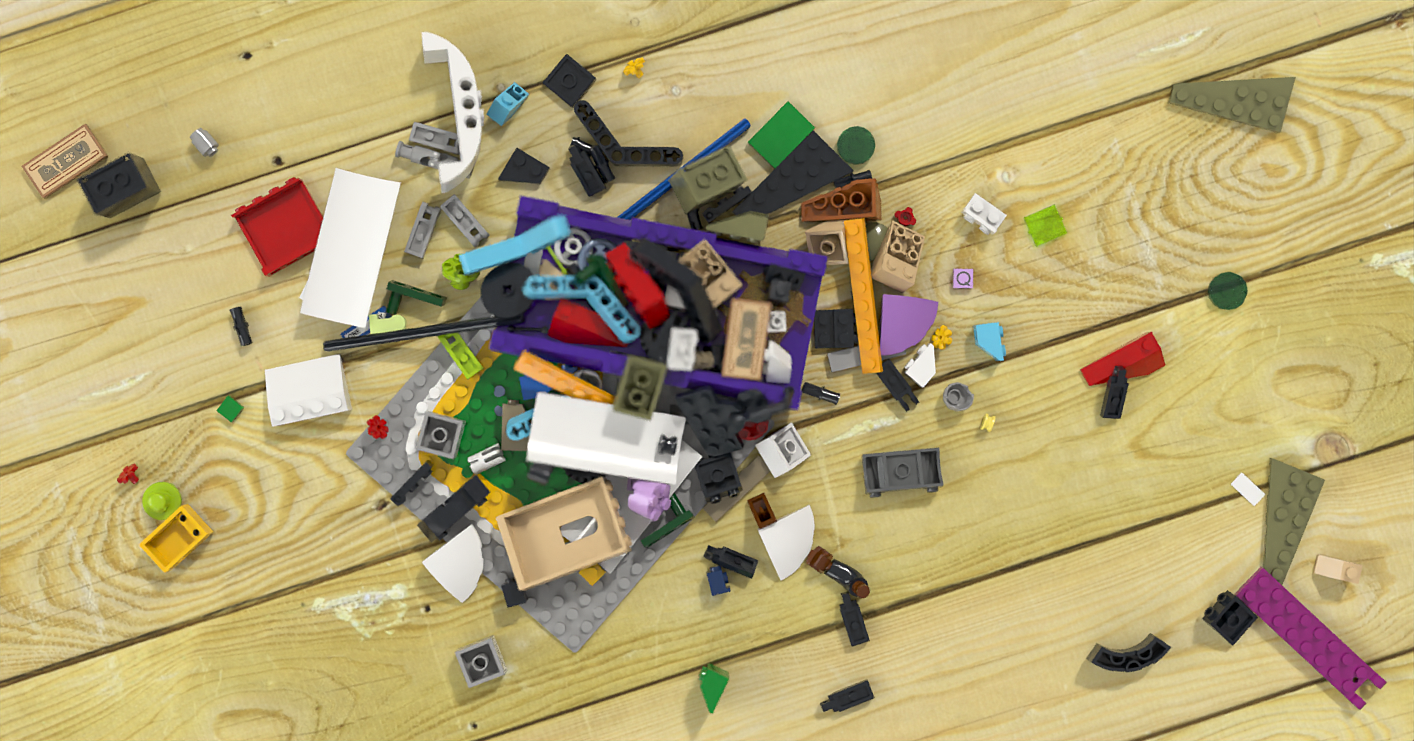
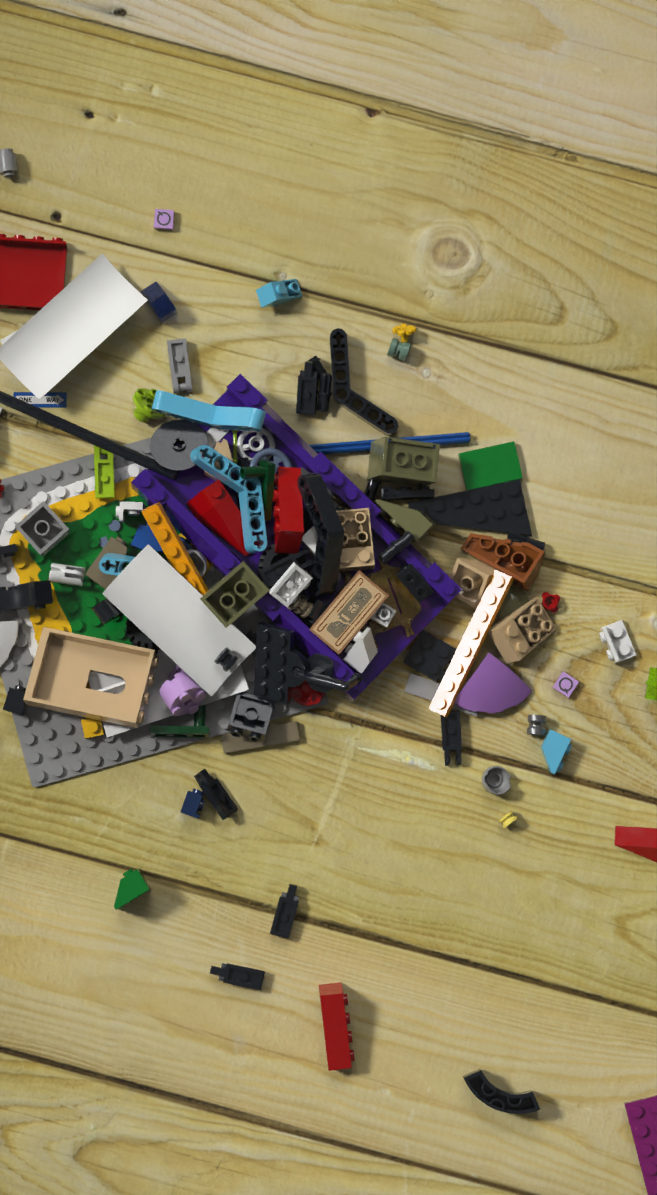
camera: 25 degrees right, 5 degrees down
(369, 104) = (164, 219): none -> lavender tile
(393, 323) = (63, 411): yellowish green leg -> none
(398, 289) = (88, 387): dark green piece -> none
(411, 177) = (159, 302): none -> clear blue slope
(419, 155) = (196, 309): light grey piece -> none
(422, 230) = (139, 351): light grey plate -> none
(434, 137) = (201, 283): light grey plate -> none
(464, 97) = (243, 273): white slope -> none
(505, 368) = (132, 508): none -> white bracket
(524, 169) = (257, 355): black wing -> none
(544, 329) = (186, 497): black hinge -> none
(569, 80) = (342, 307): black tile -> none
(640, 86) = (399, 349): none -> sand green wheel
(750, 257) = (396, 547): none -> black pin
(762, 511) = (269, 769): reddish brown slope -> none
(777, 293) = (400, 591): black brick -> none
(783, 450) = (320, 729): white slope -> none
(789, 540) = (275, 809): white brick -> none
(820, 393) = (383, 702): black axle -> none
(840, 572) = (300, 863): piece -> none
(856, 145) = (547, 515): clear green tile -> none
(902, 471) = (408, 812): dark grey piece -> none
(923, 367) = (483, 736): white slope -> none
(942, 337) = (515, 722): yellow plant -> none
(955, 686) = (335, 1026): none -> red wedge
(962, 332) = (536, 729): none -> flat silver wheel
(1115, 394) = (630, 865): black hinge -> none
(1229, 617) = (607, 1119): black plate -> none

